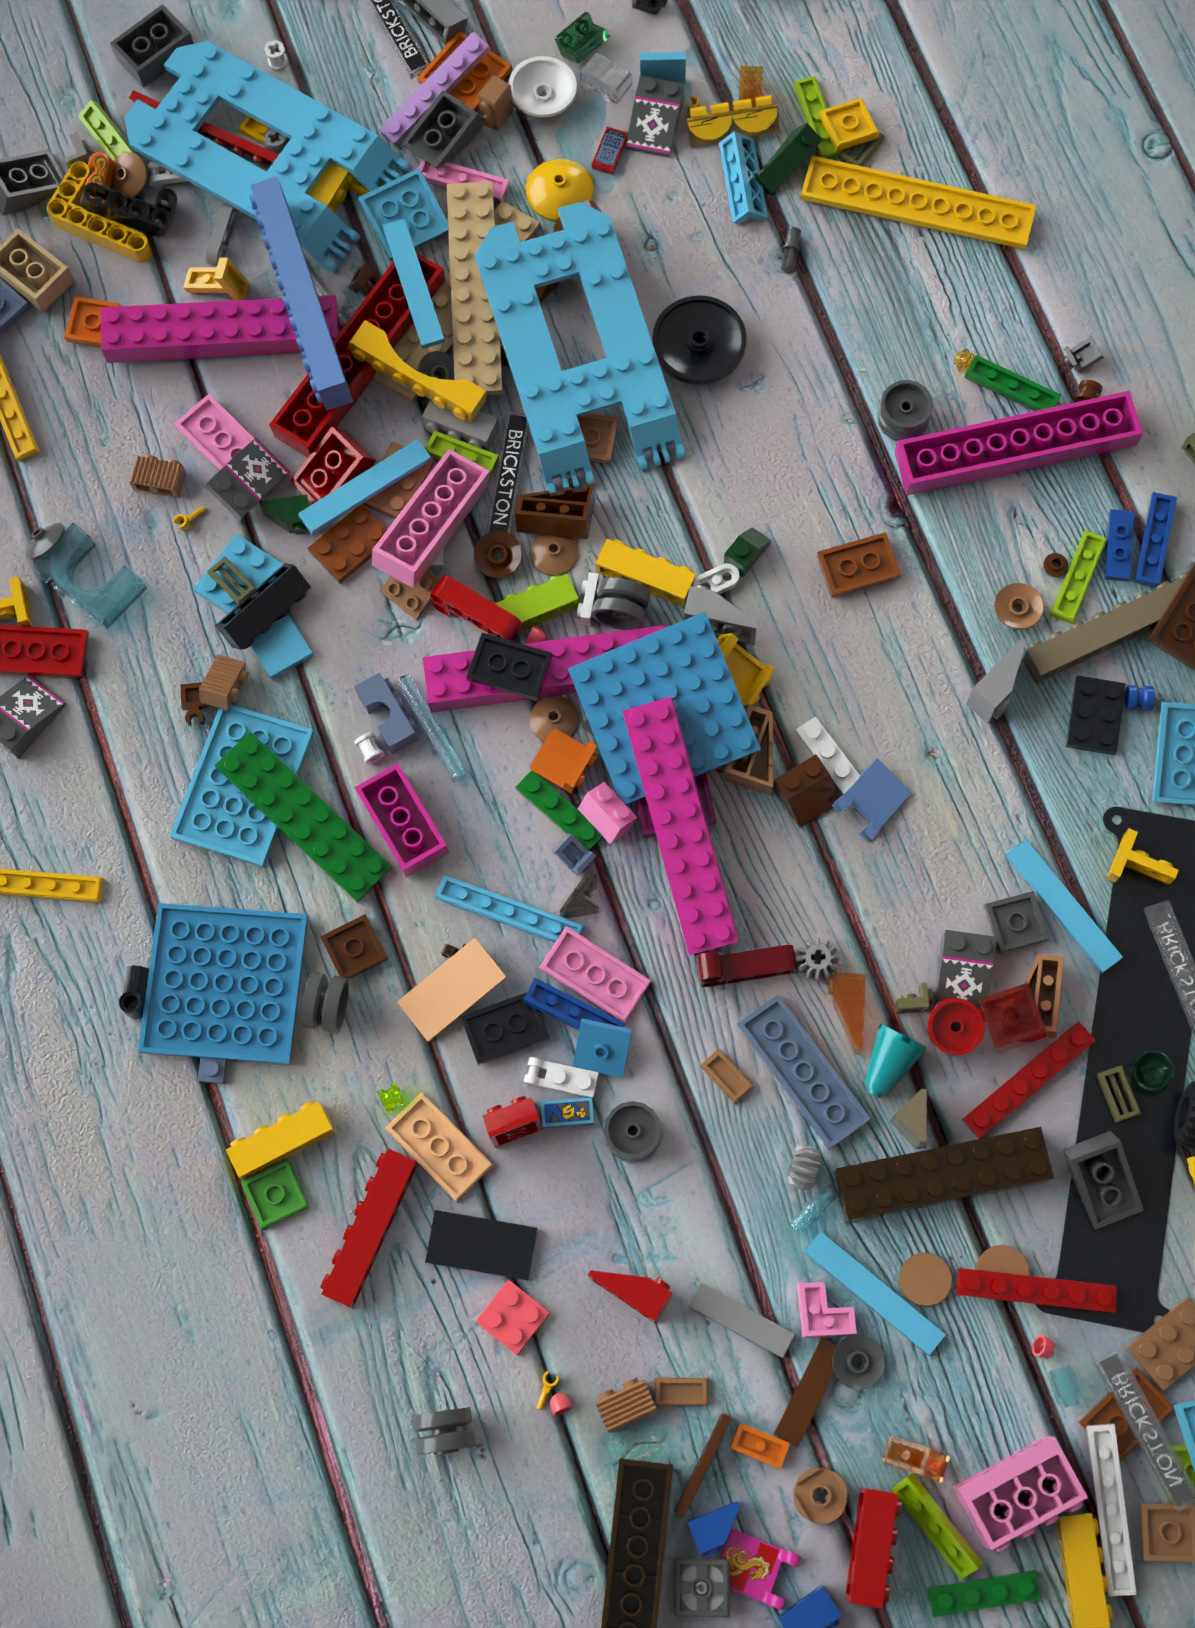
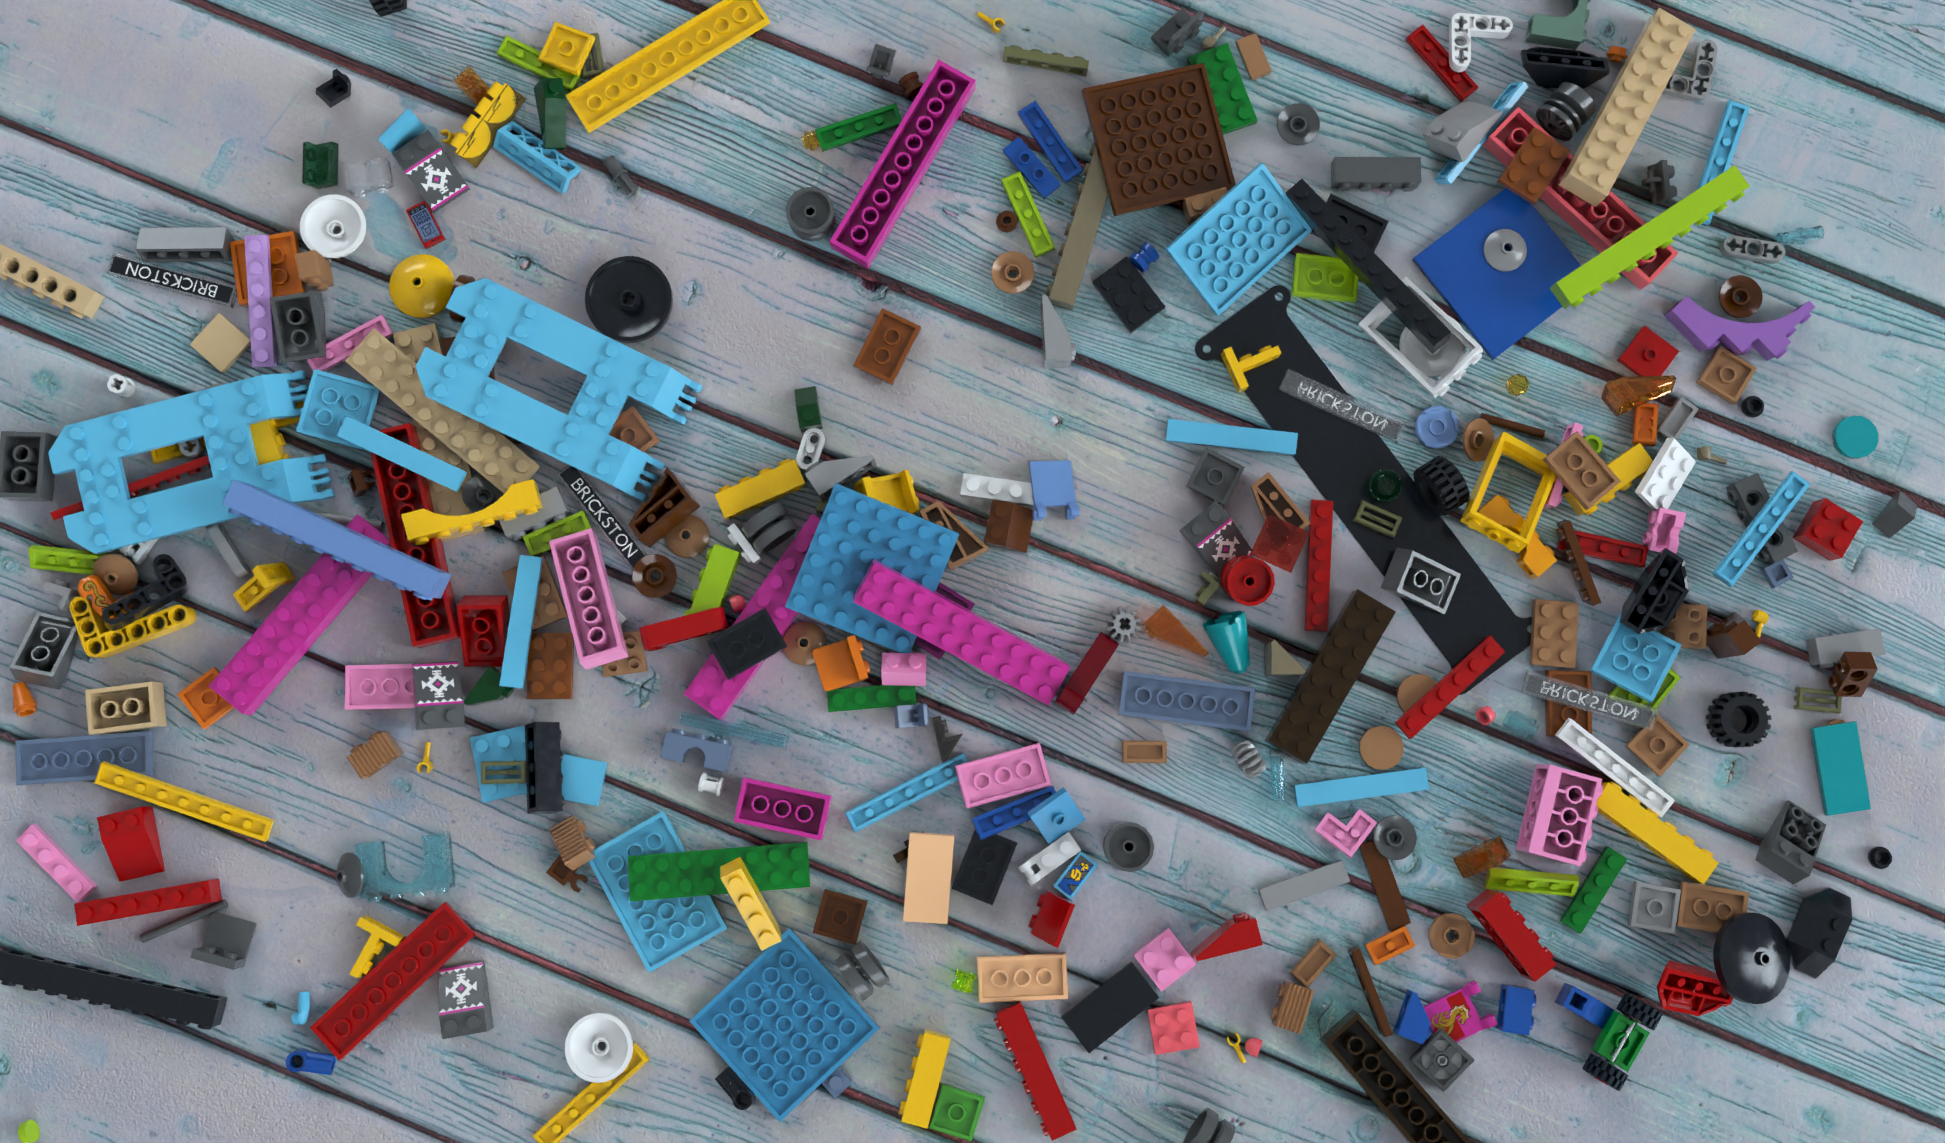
camera: 55 degrees left, 10 degrees up
(63, 839) = (583, 1047): none -> white dish
(299, 861) = (750, 903): none -> yellow brick
(375, 93) = (221, 343): none -> tan tile
(565, 1255) = (1164, 959): none -> bright pink plate

